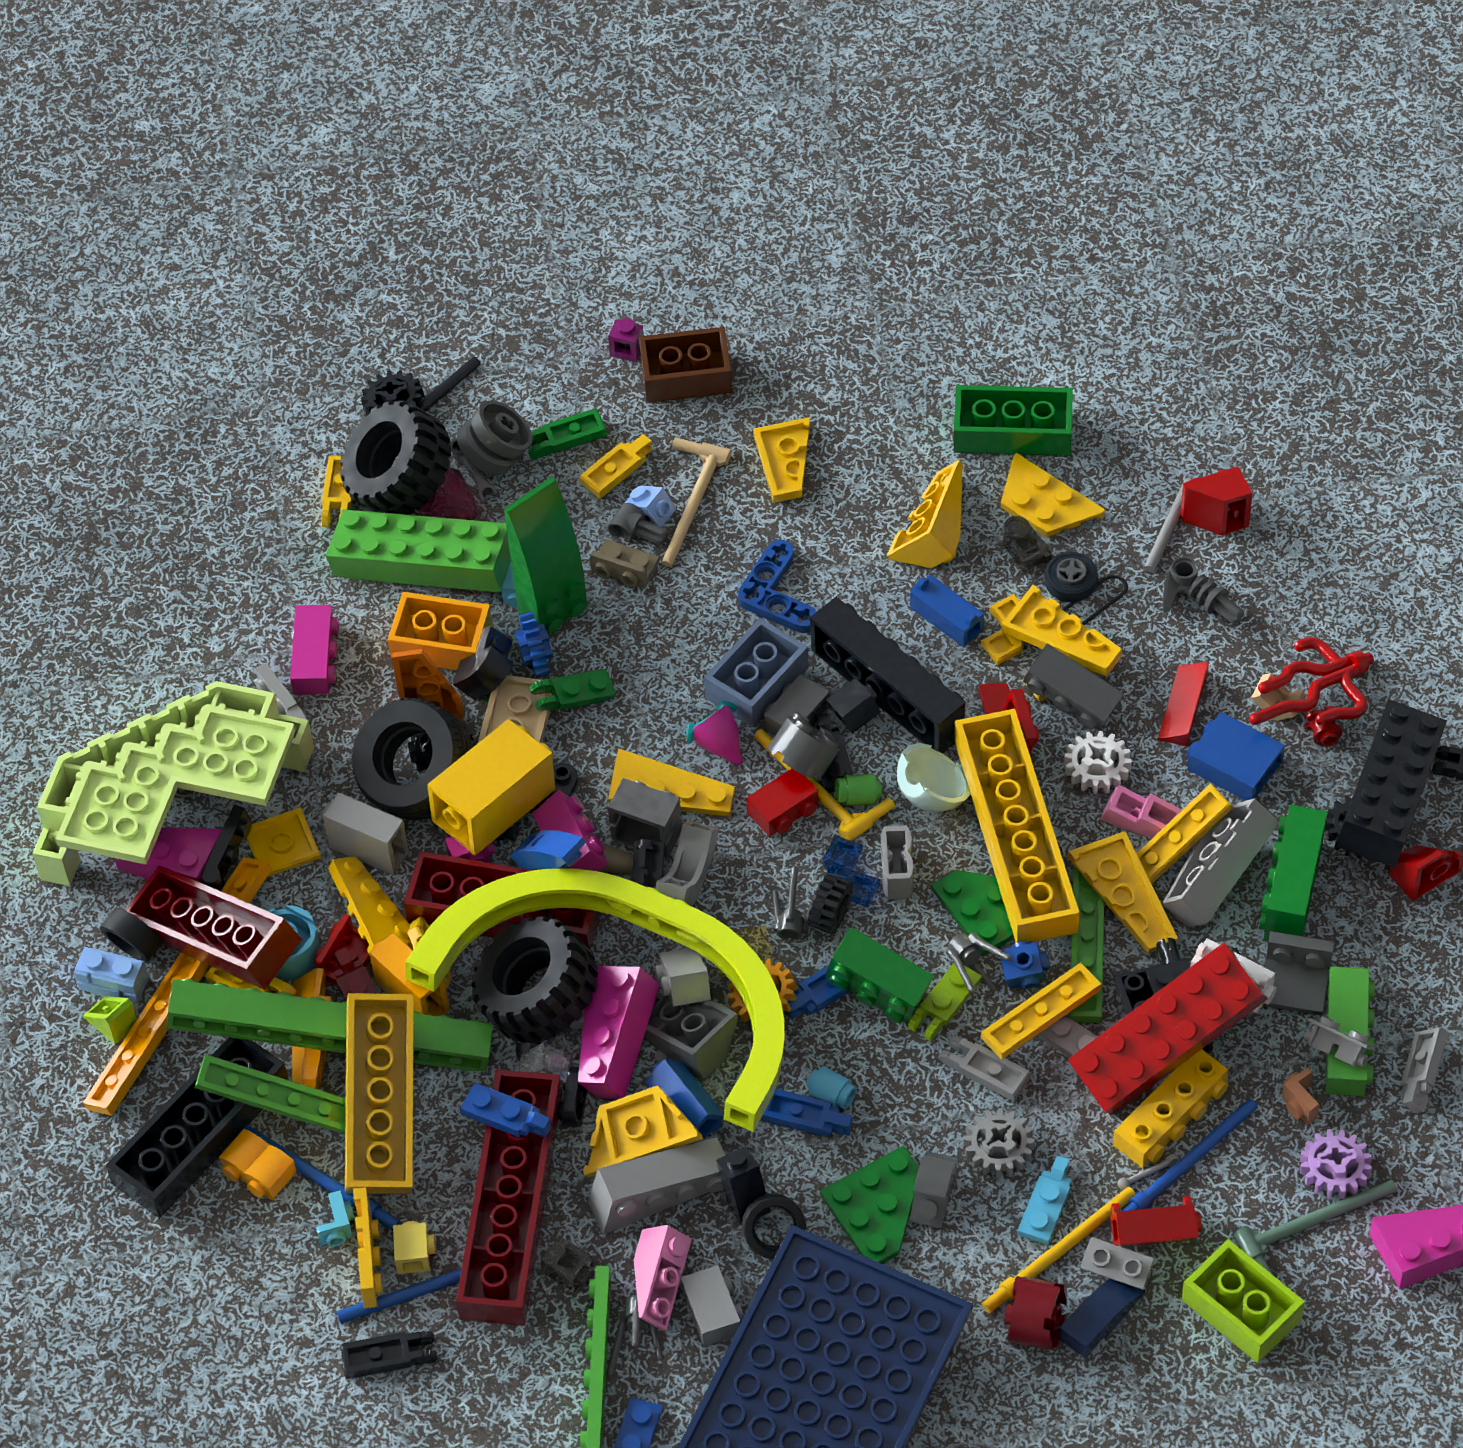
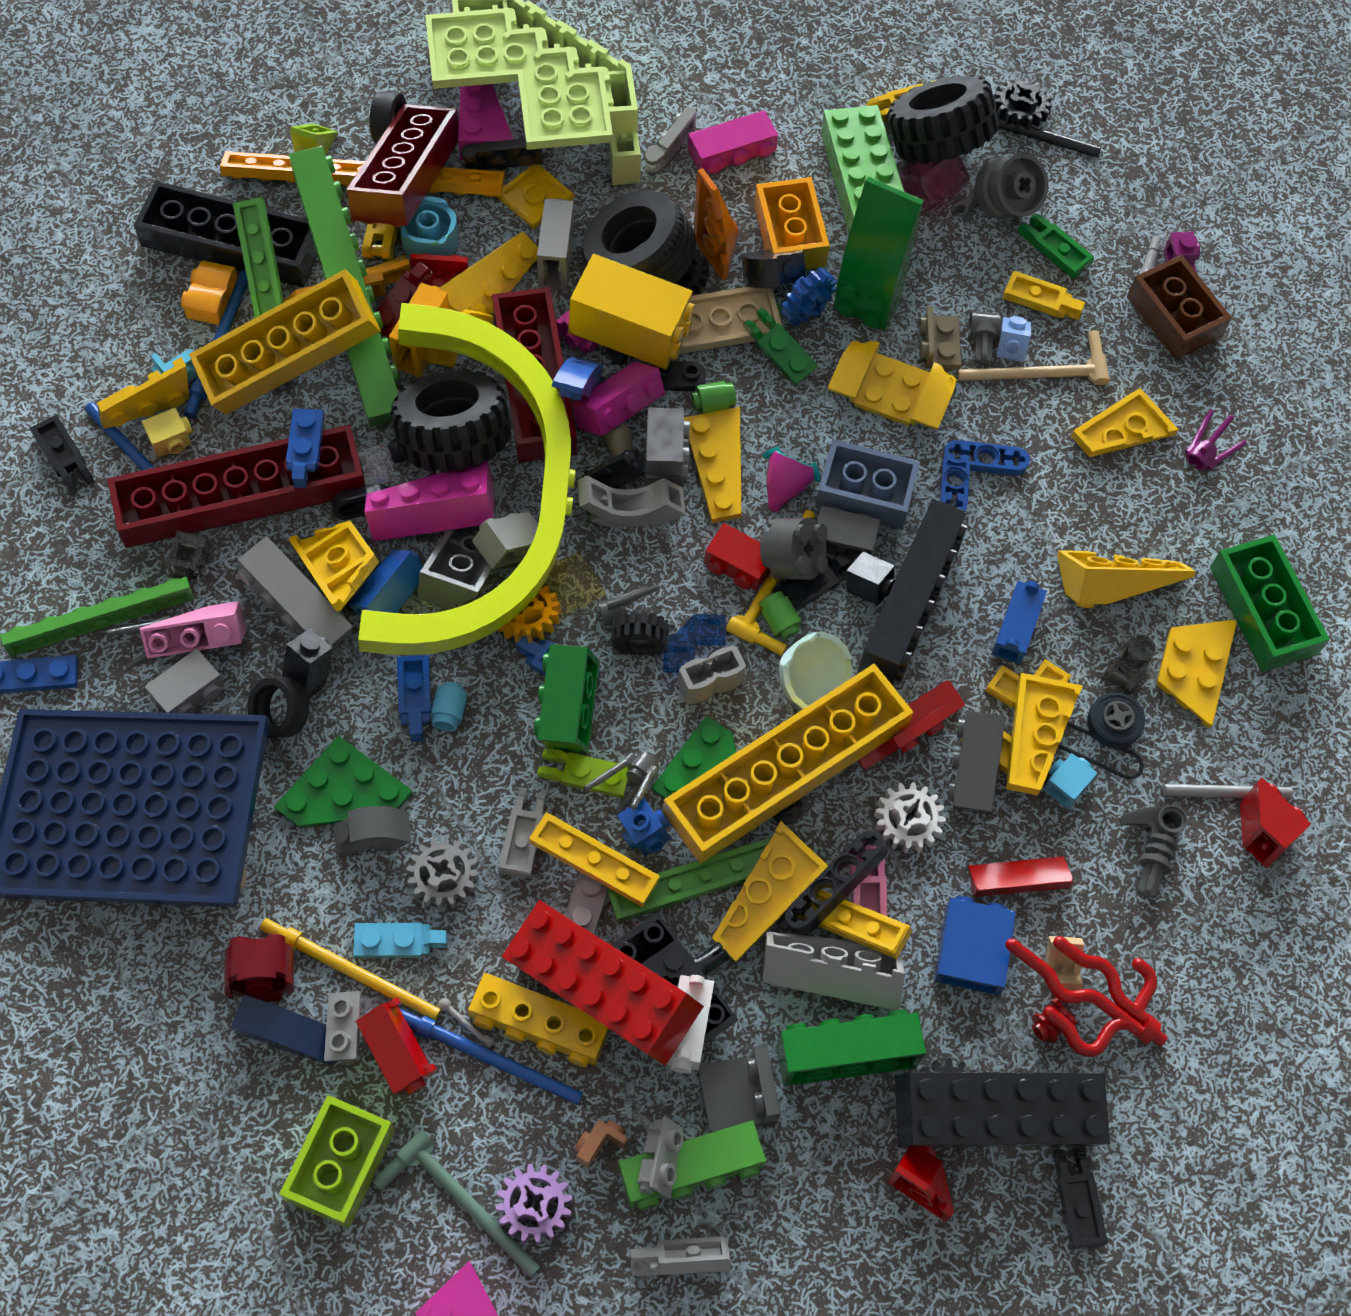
camera: 60 degrees right, 10 degrees up
(111, 974) = (351, 123): light blue brick -> none
(599, 764) = (713, 397): none -> bright green brick
(618, 369) = (1152, 254): none -> light grey wheel
(660, 616) = (891, 386): none -> yellow piece
(840, 408) = (1204, 453): none -> magenta plant
(1116, 627) = (1069, 779): none -> medium azure brick
(1139, 832) = (831, 879): none -> black beam

